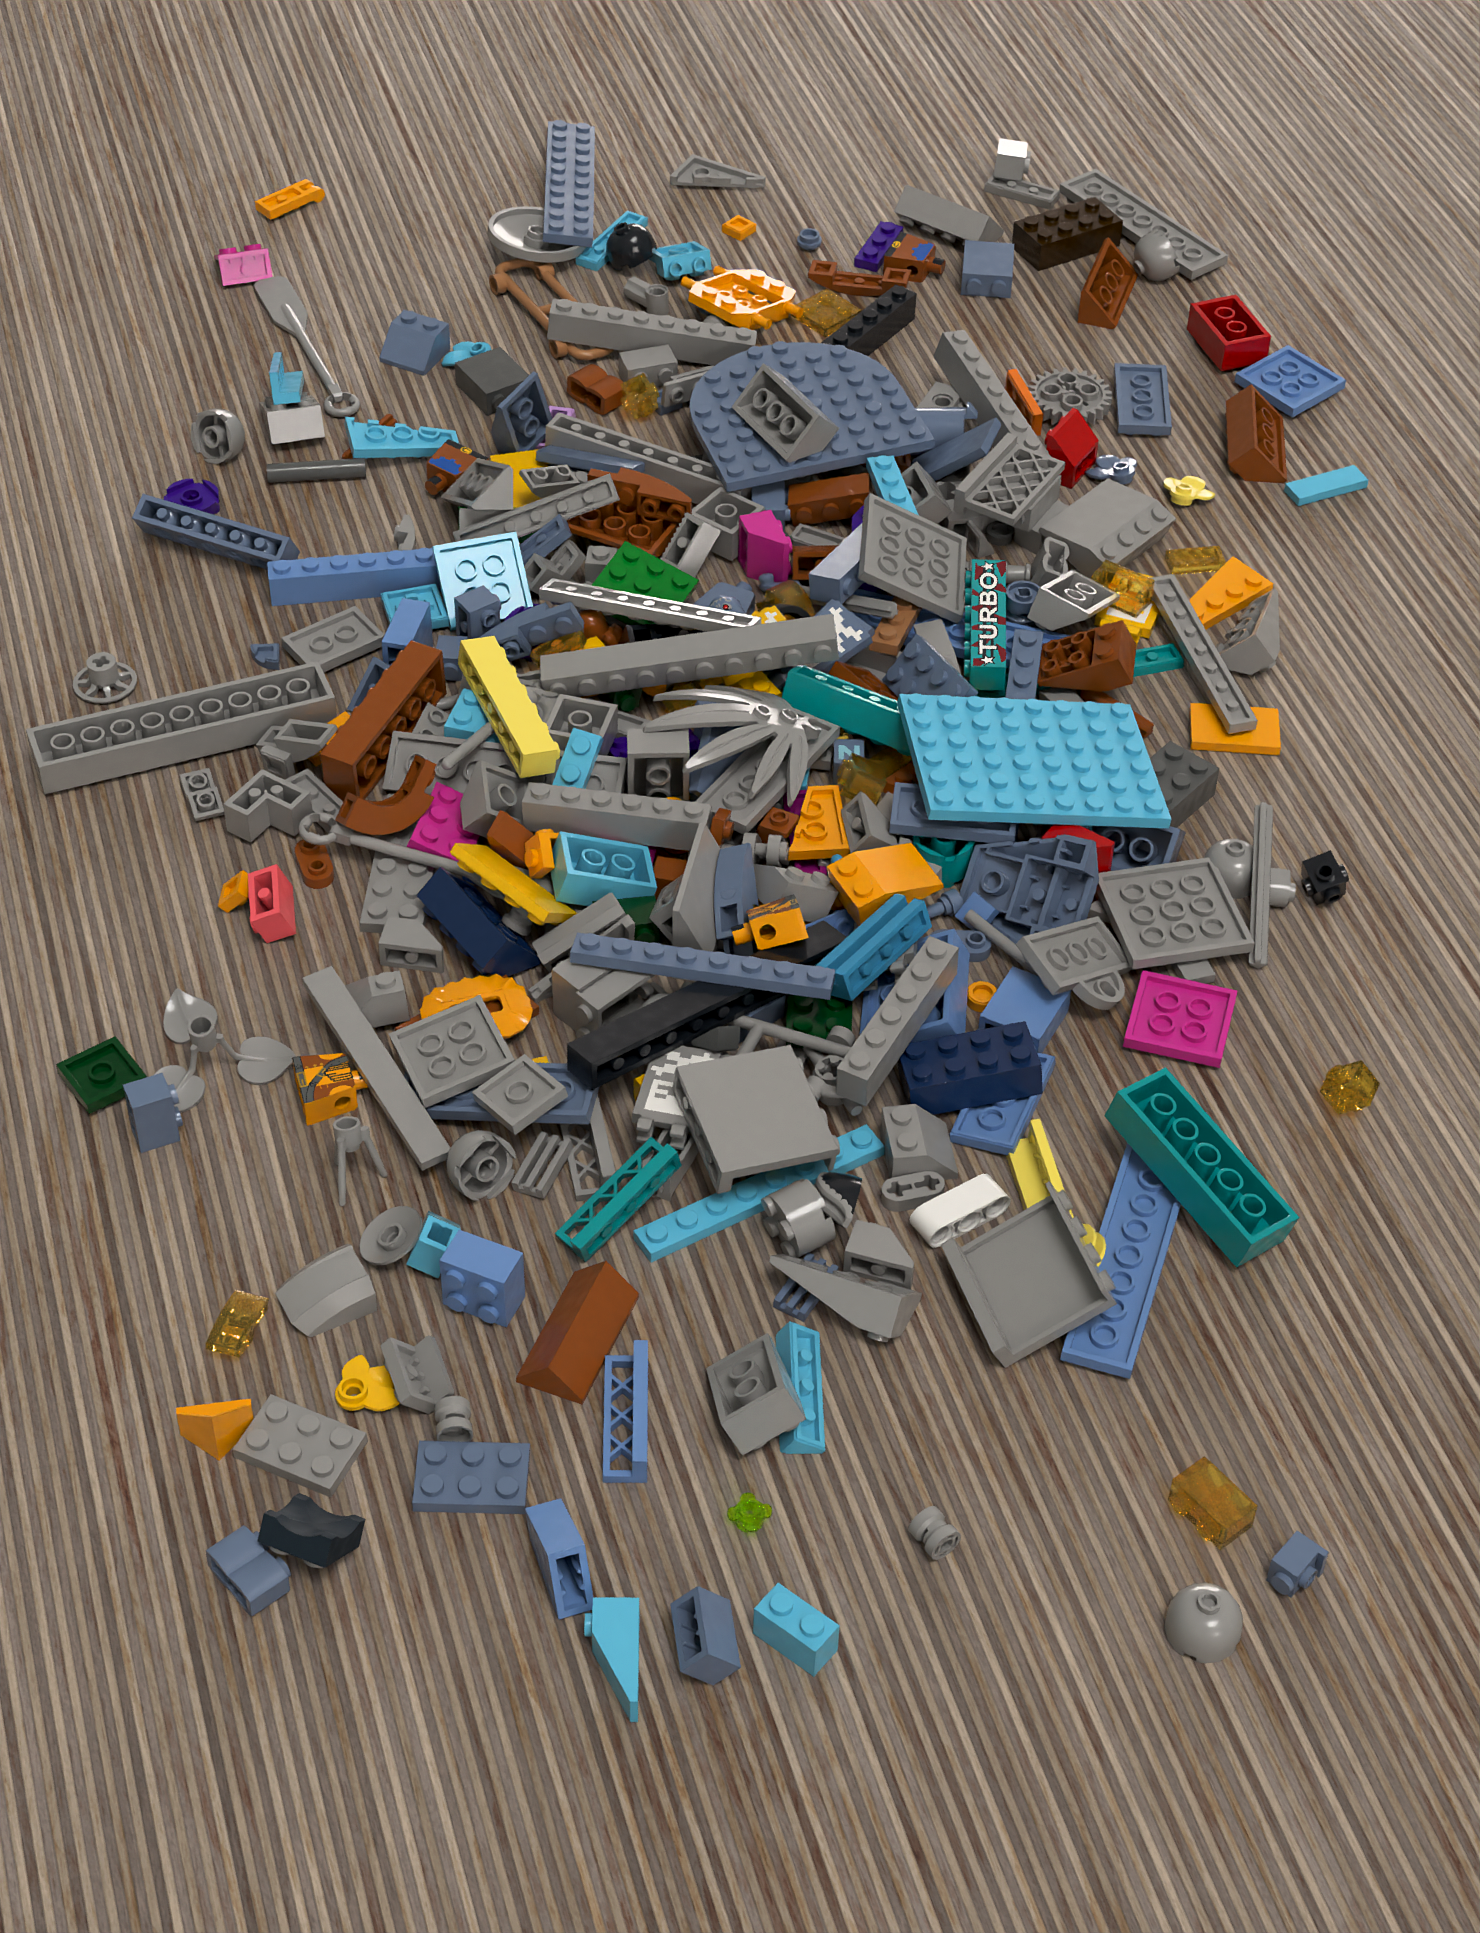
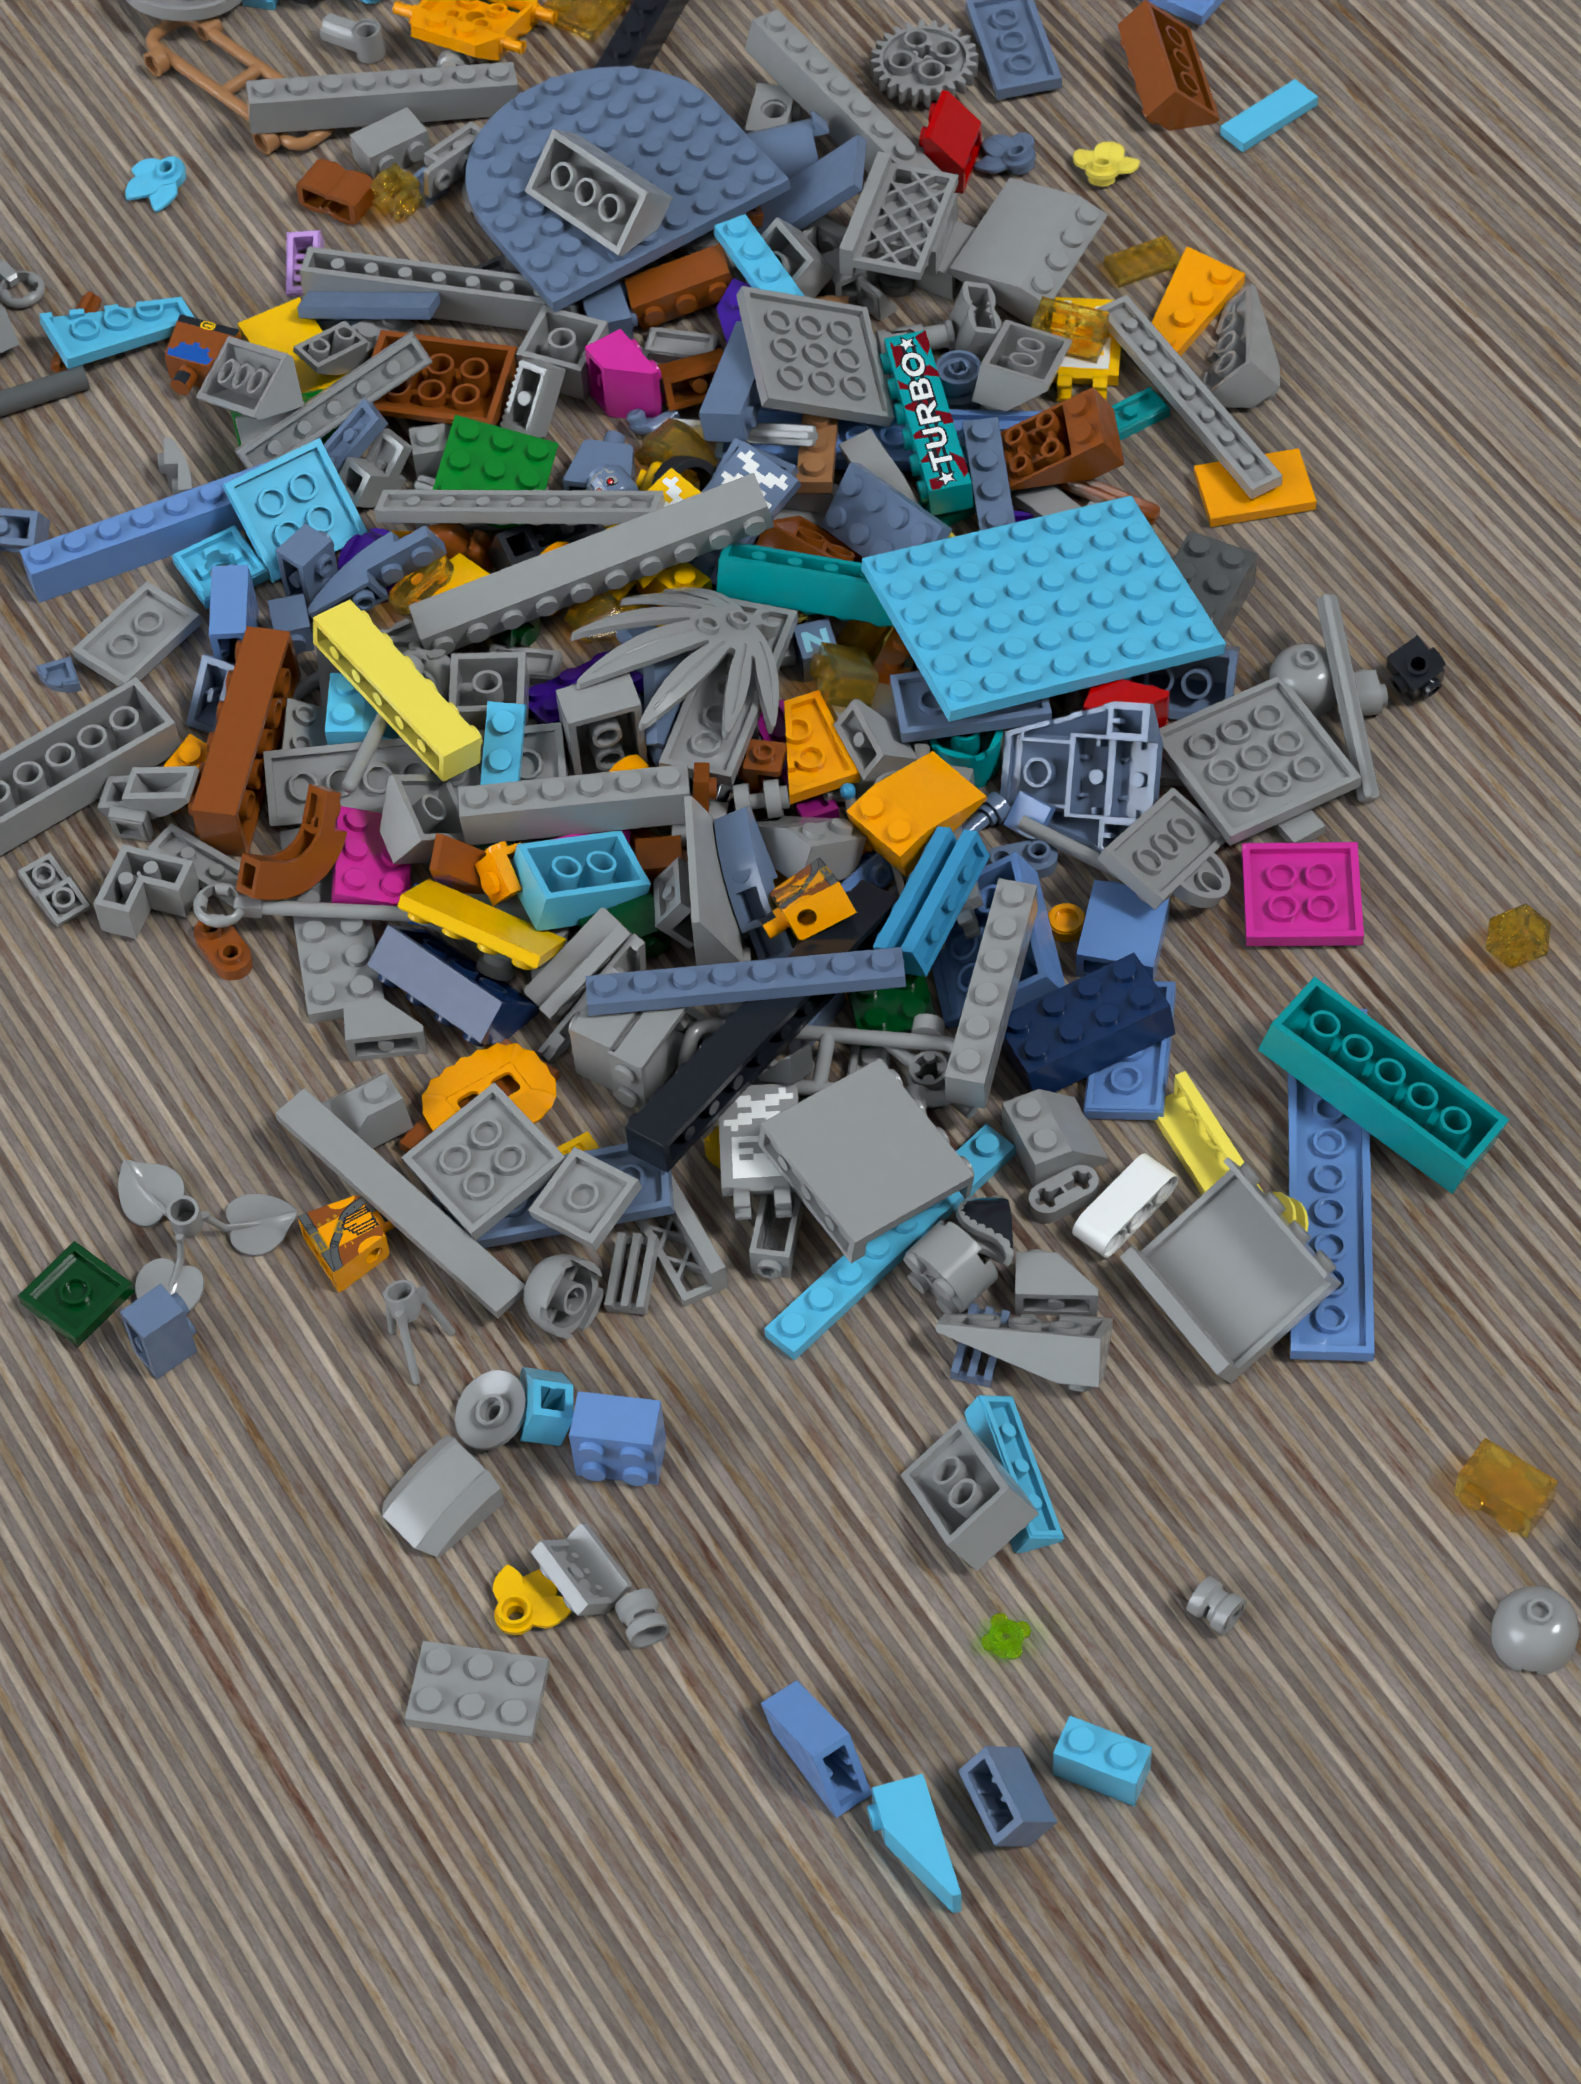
camera: 10 degrees left, 10 degrees up
(215, 1425) = (374, 1697): light orange slope -> none
(234, 892) = (144, 1011): light orange plate -> none
(236, 1323) = (352, 1565): clear yellow slope -> none
(249, 1570) = (476, 1857): sand blue brick -> none
(271, 904) = (196, 1019): coral brick -> none
(310, 1532) = (533, 1796): black brick -> none
(415, 342) = (84, 177): sand blue slope -> none
(471, 1477) = (683, 1677): sand blue plate -> none
(489, 378) = (203, 210): dark grey brick -> none
(522, 417) = (267, 267): sand blue slope -> none
(579, 1333) = (744, 1471): dark orange slope -> none
(621, 1203) = (749, 1300): teal fence -> none
(638, 1409) = (844, 1544): medium blue fence -> none
(649, 494) = (466, 342): dark orange slope -> none
(1024, 400) = (871, 83): orange tile -> none

